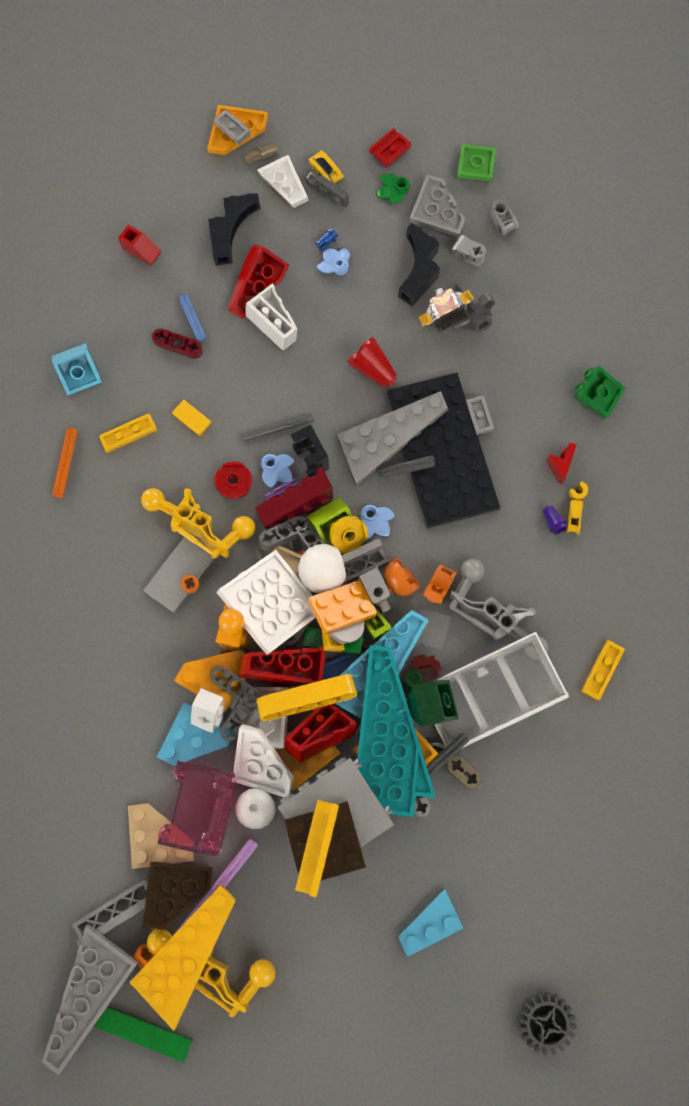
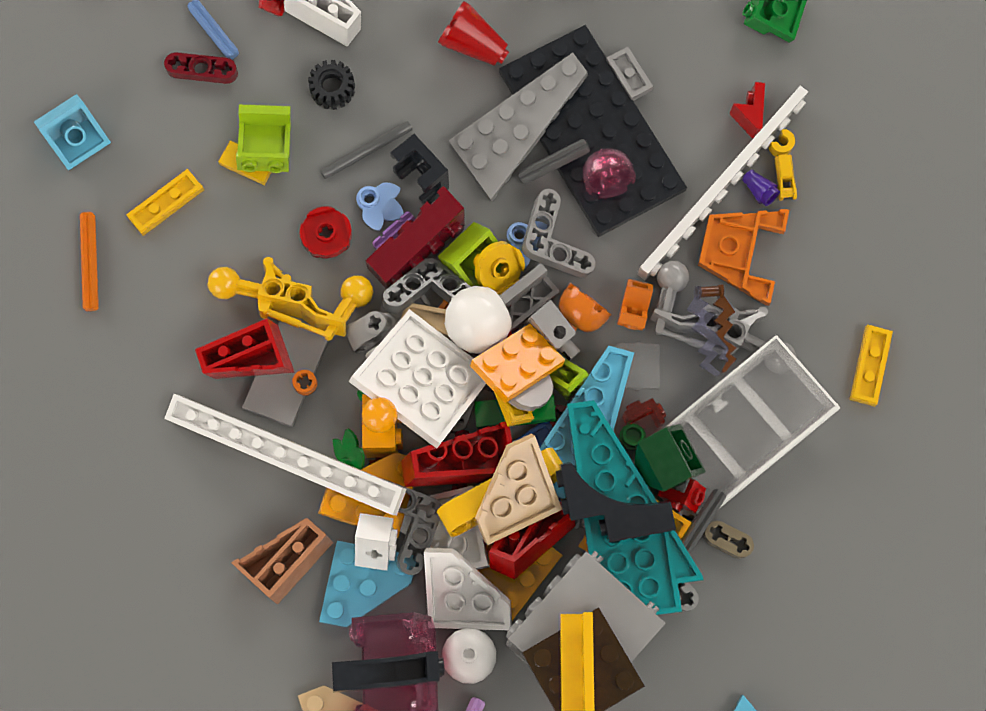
camera: 20 degrees left, 0 degrees up
(141, 708) = (284, 560): none -> nougat wedge
(154, 553) = (246, 352): none -> red wedge
(162, 634) = (286, 454): none -> white plate
(190, 806) = (387, 672): none -> black arch
(207, 403) = (264, 138): none -> lime panel
(207, 643) = (348, 450): none -> green plate
(245, 557) = (369, 330): none -> light grey piece
(262, 366) = (331, 71): none -> black tyre
(316, 701) = (518, 492): none -> tan plate
(385, 738) = (619, 518): none -> black arch
(387, 526) = (547, 244): none -> light grey beam
(441, 736) = (689, 500): none -> red bracket
(443, 484) = (608, 173): none -> clear pink cylinder
(489, 622) = (713, 338): none -> piece
(520, 559) = (730, 248): none -> orange wing
(522, 515) = (717, 191): none -> white plate

